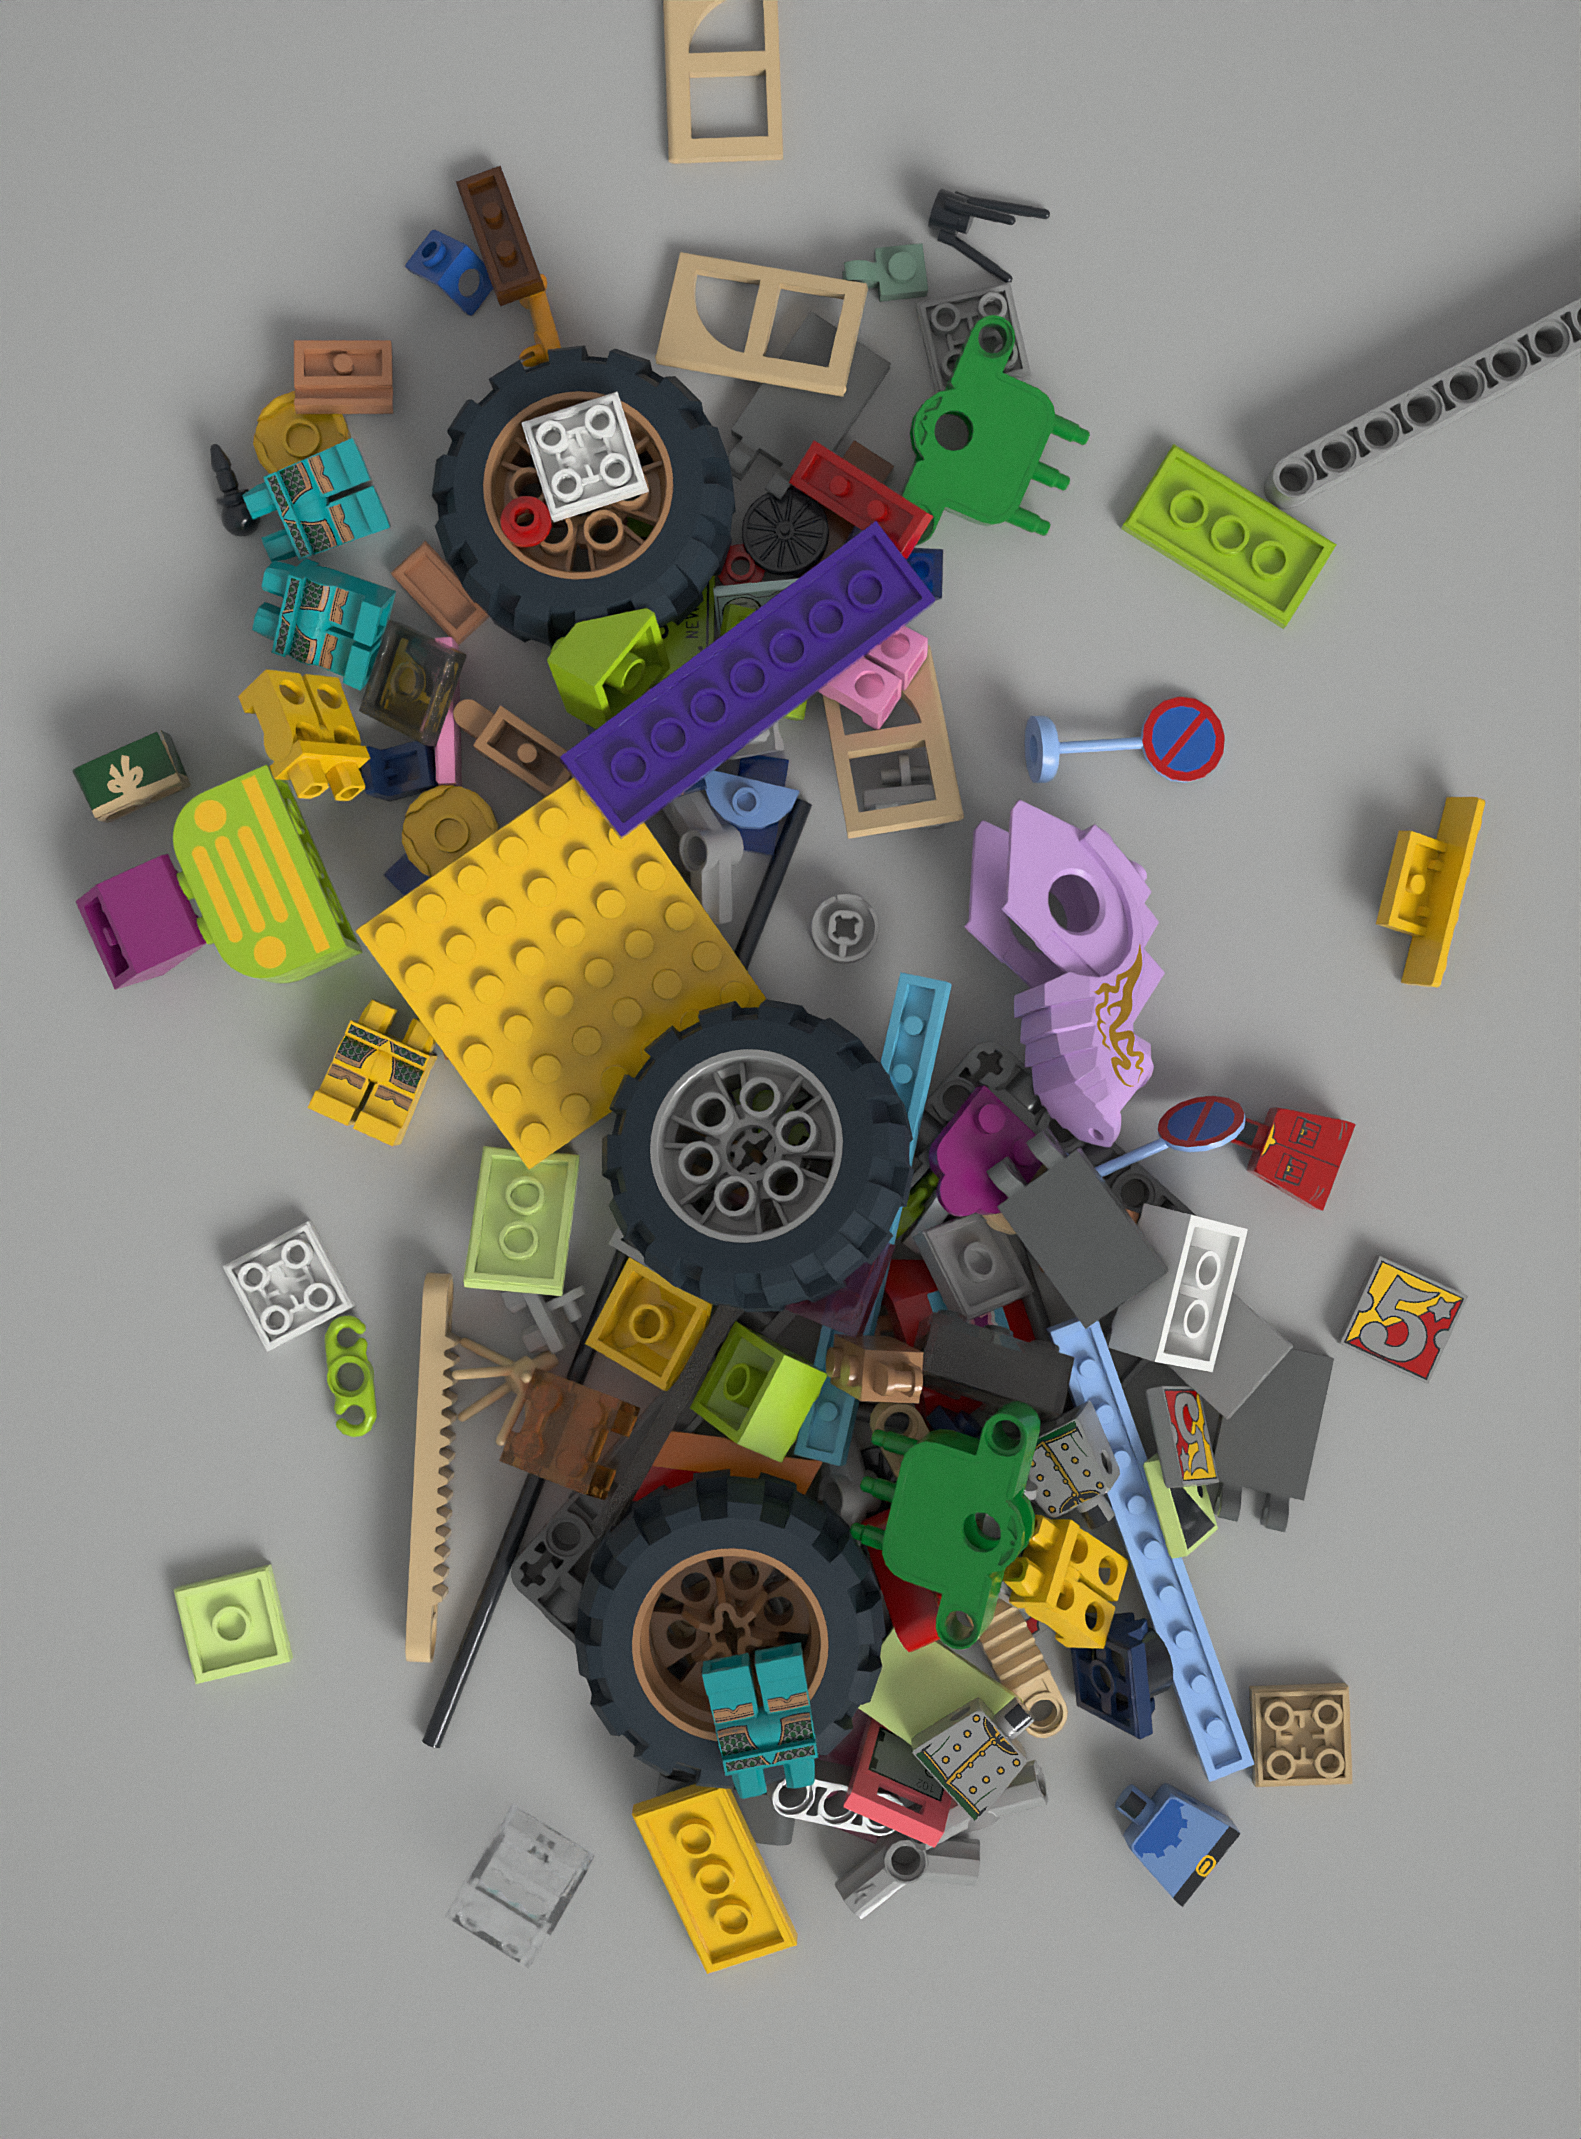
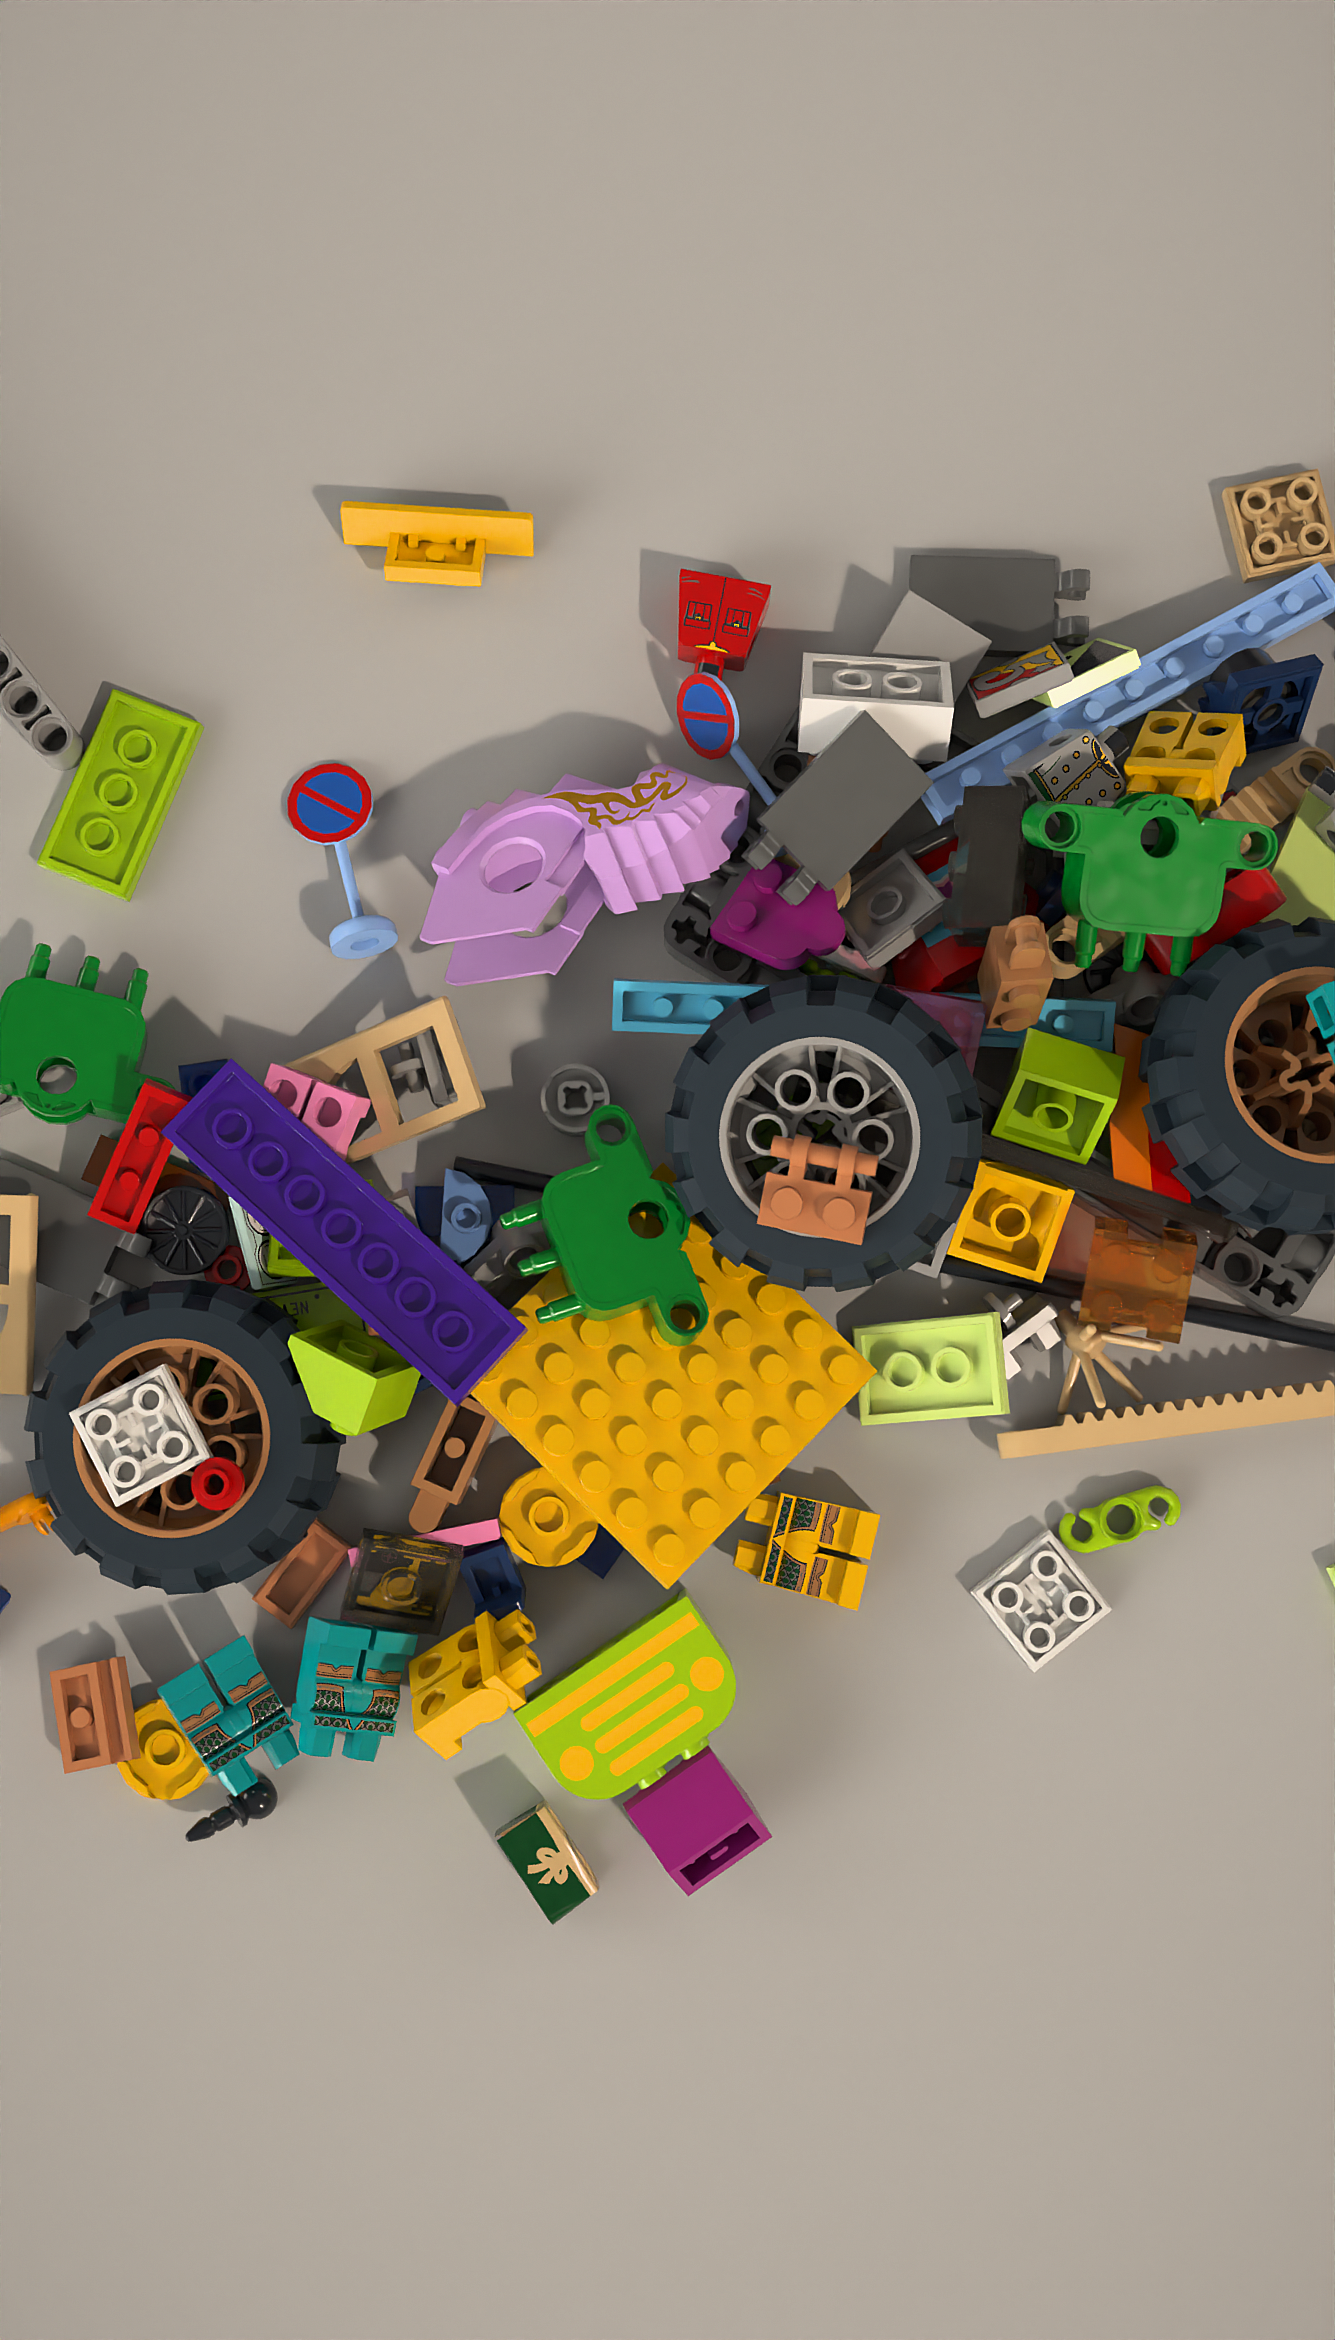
camera: 100 degrees left, 5 degrees down
(681, 1129) = (815, 1205): none -> nougat plate
(692, 916) = (596, 1251): none -> green piece
(1402, 1319) = (860, 498): tile -> none

